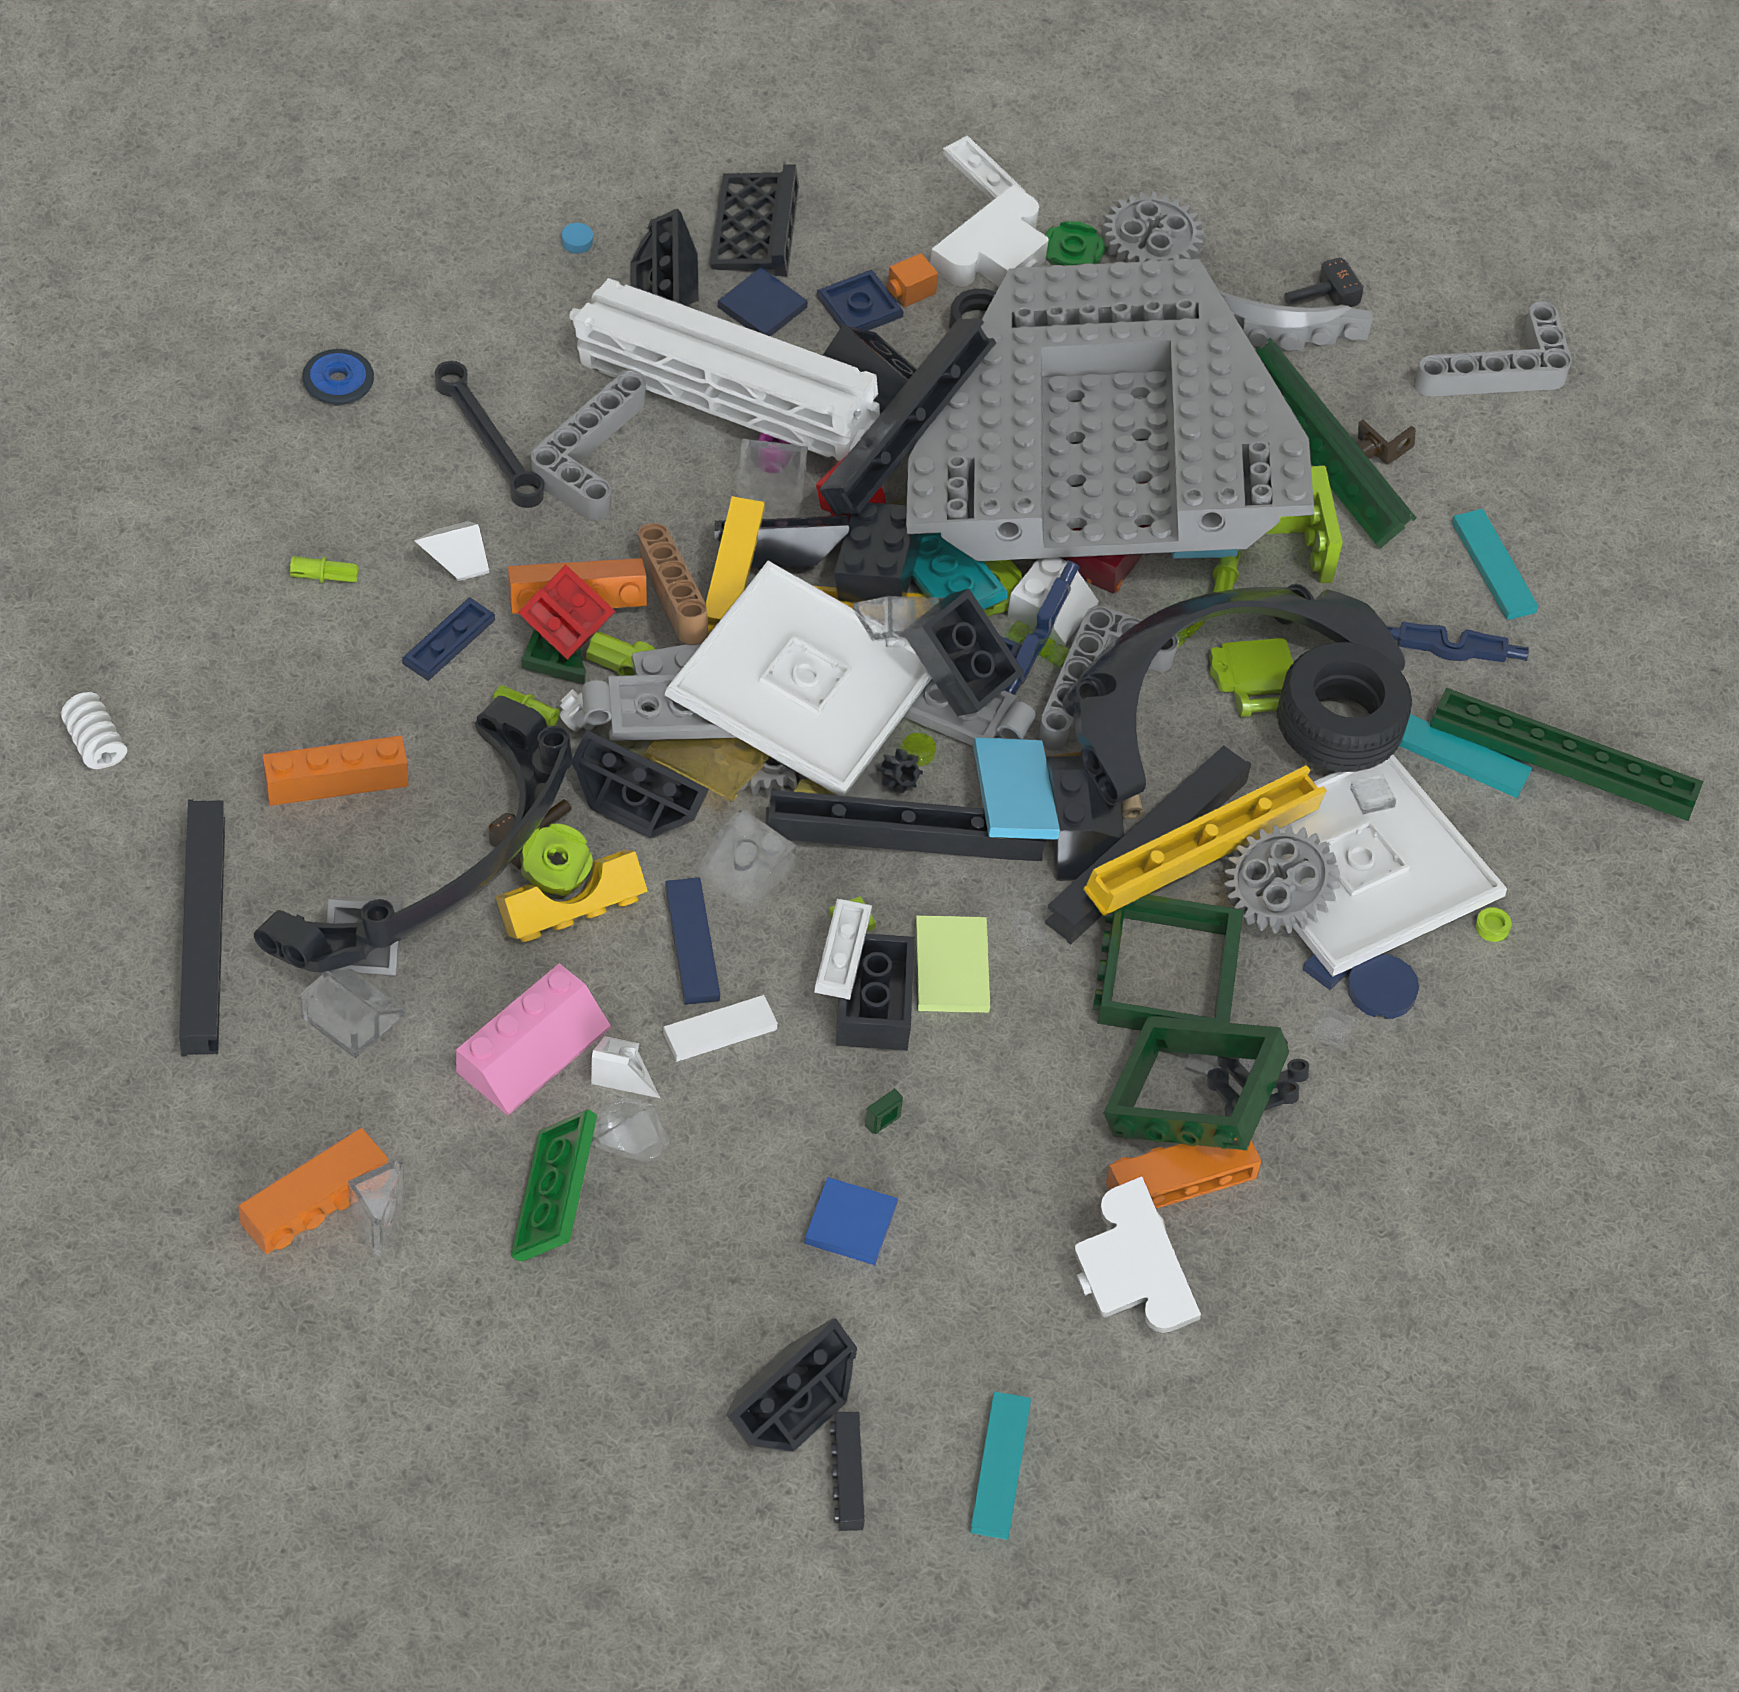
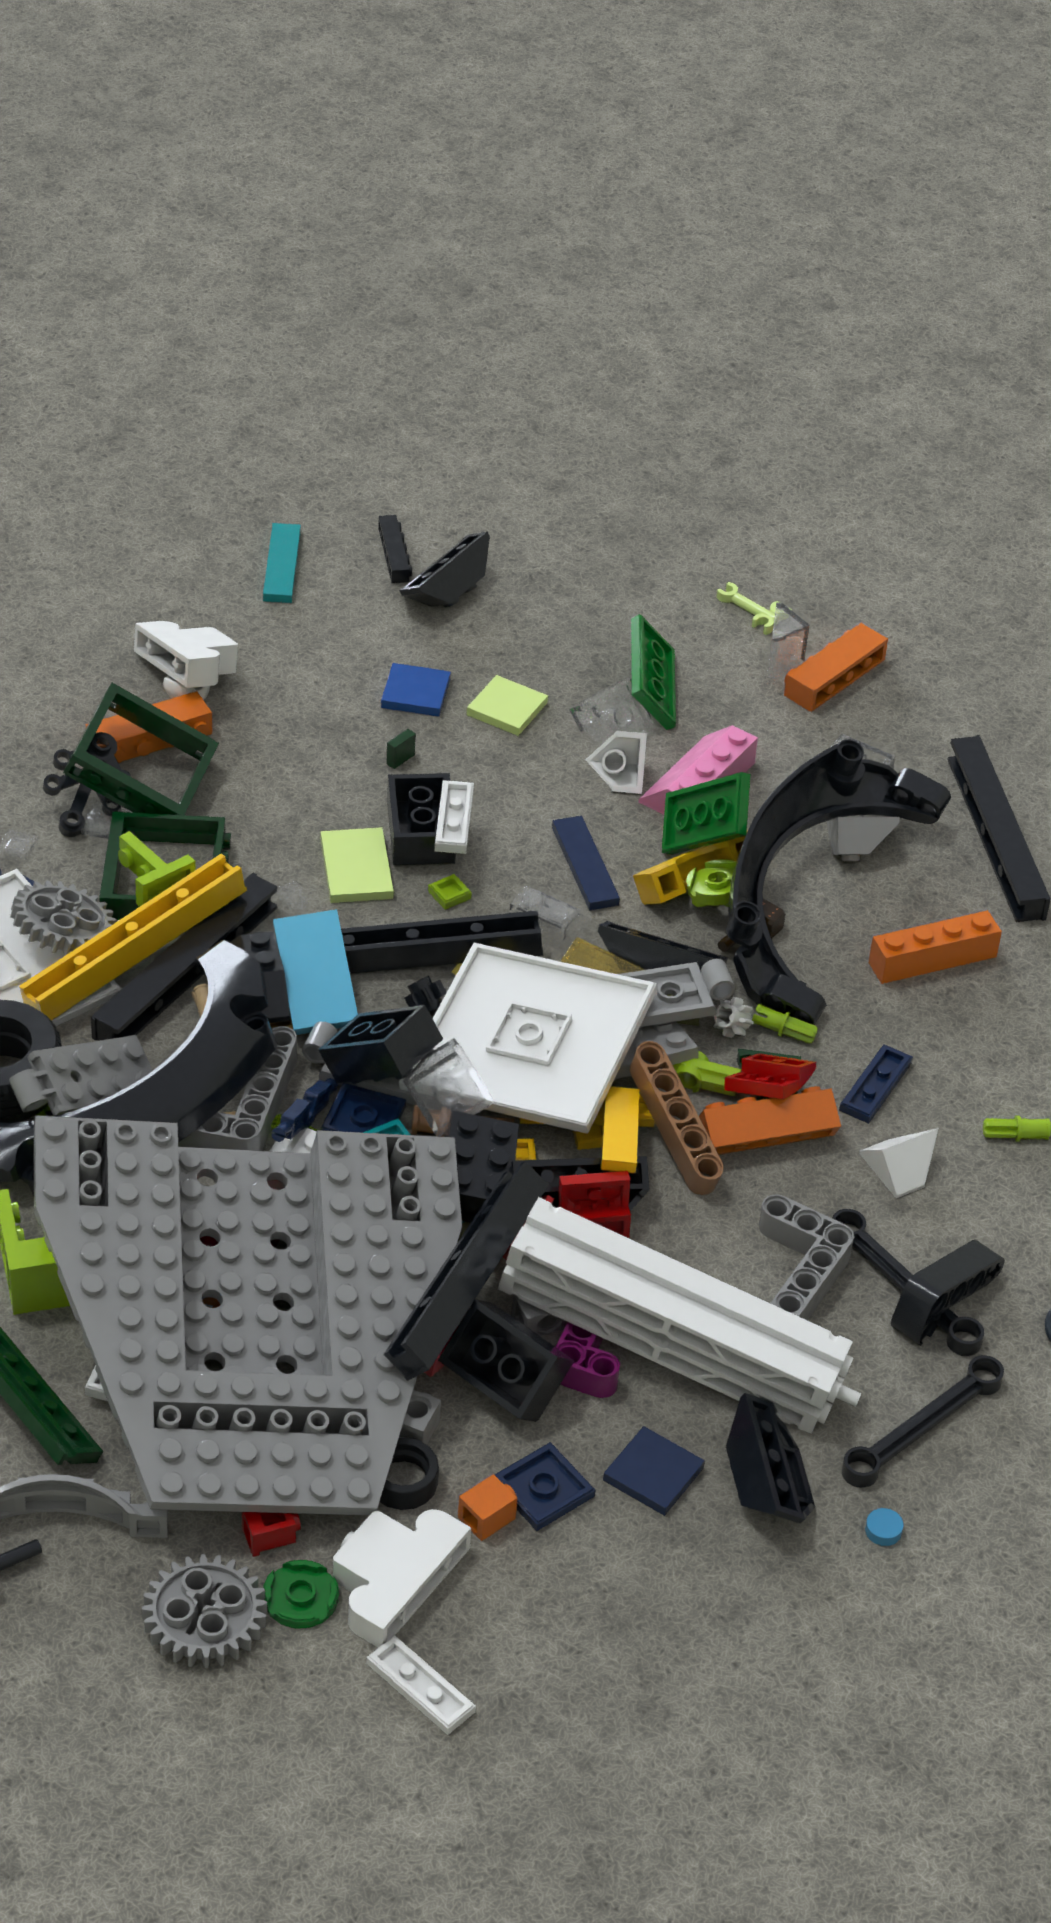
camera: 175 degrees right, 10 degrees down
(373, 1303) = (762, 615): none -> yellowish green bar
(453, 405) = (943, 1286): none -> black beam
(513, 313) = (922, 1421): none -> black piece
(558, 900) = (706, 813): none -> green tile
(720, 1028) = (547, 803): white tile -> none
(741, 1184) = (507, 705): none -> yellowish green tile
(779, 502) = (598, 1198): none -> red slope
(781, 216) = (654, 1578): black fence -> none
(1181, 904) = (152, 871): none -> lime bracket
(1255, 668) = (97, 1067): none -> light grey hinge

